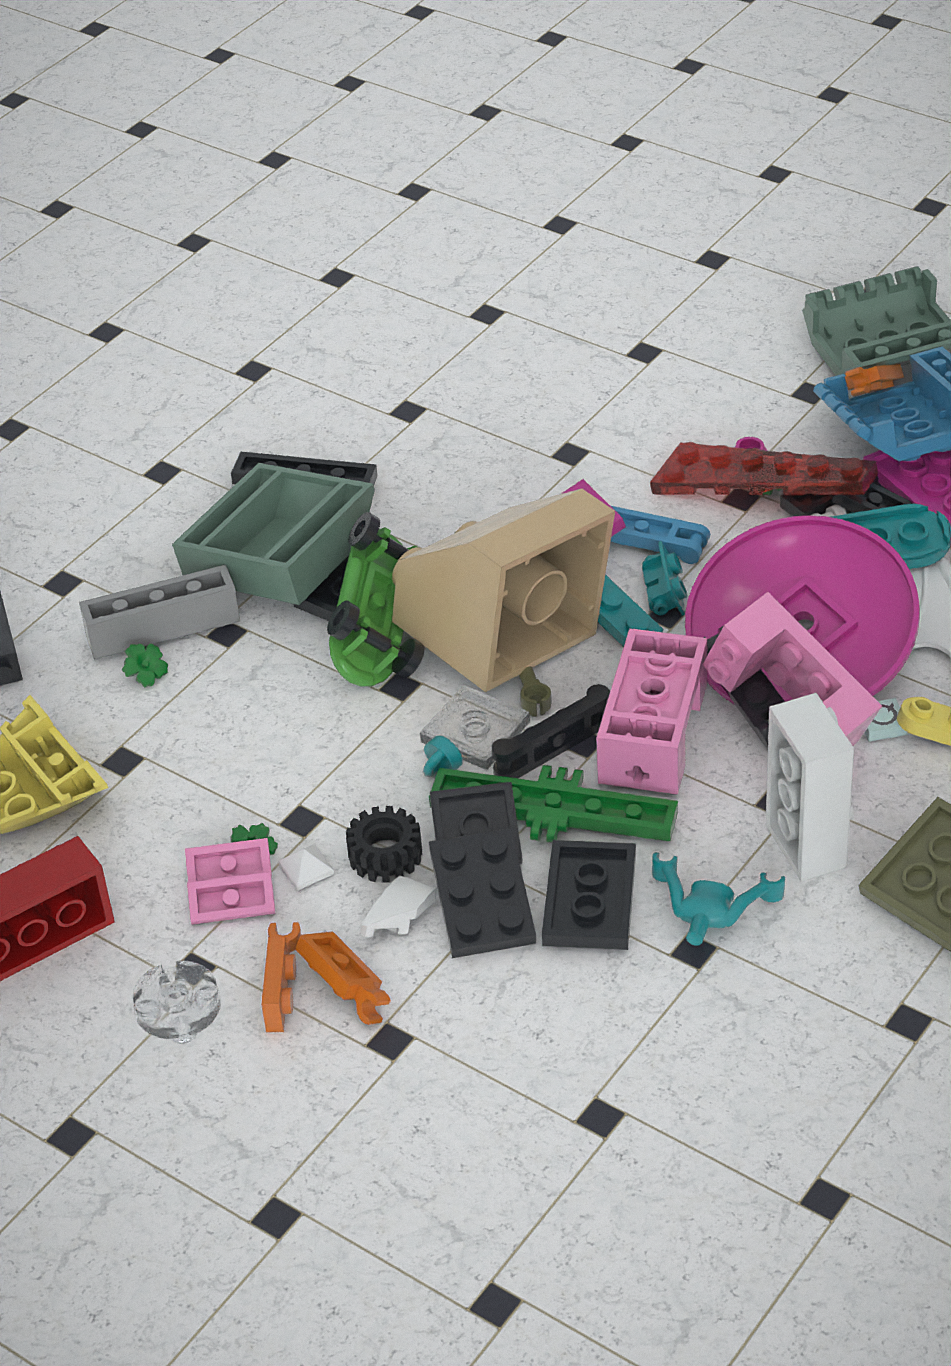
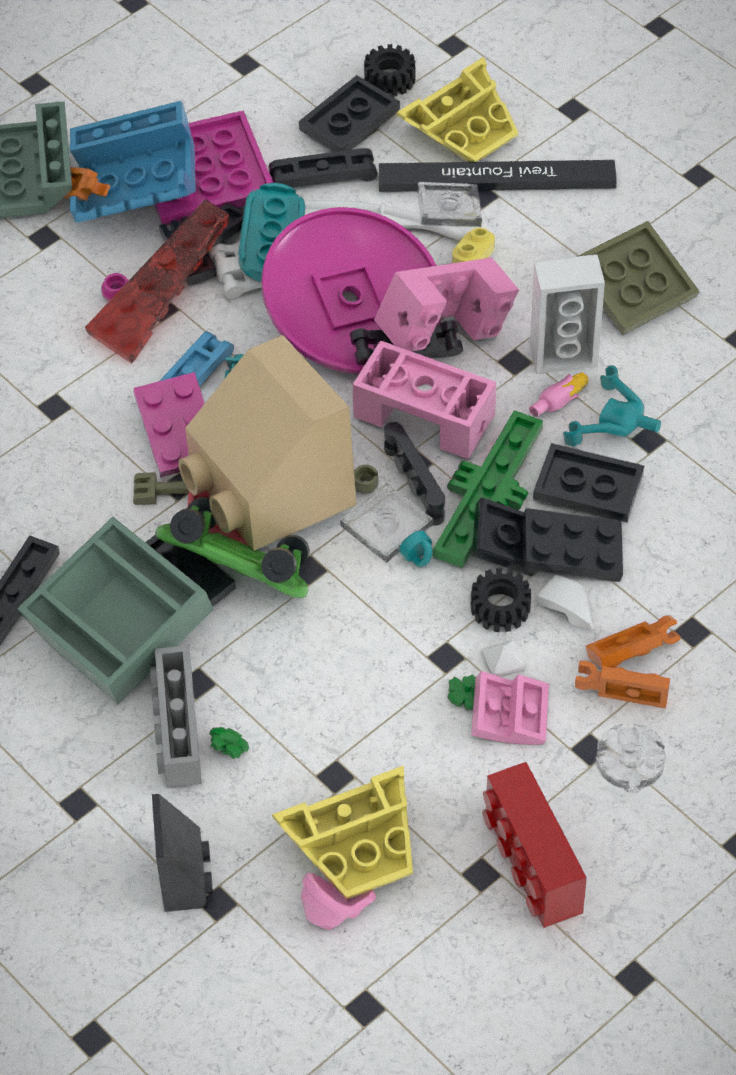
camera: 80 degrees left, 10 degrees up
(728, 844) = (559, 394): none -> bright pink piece

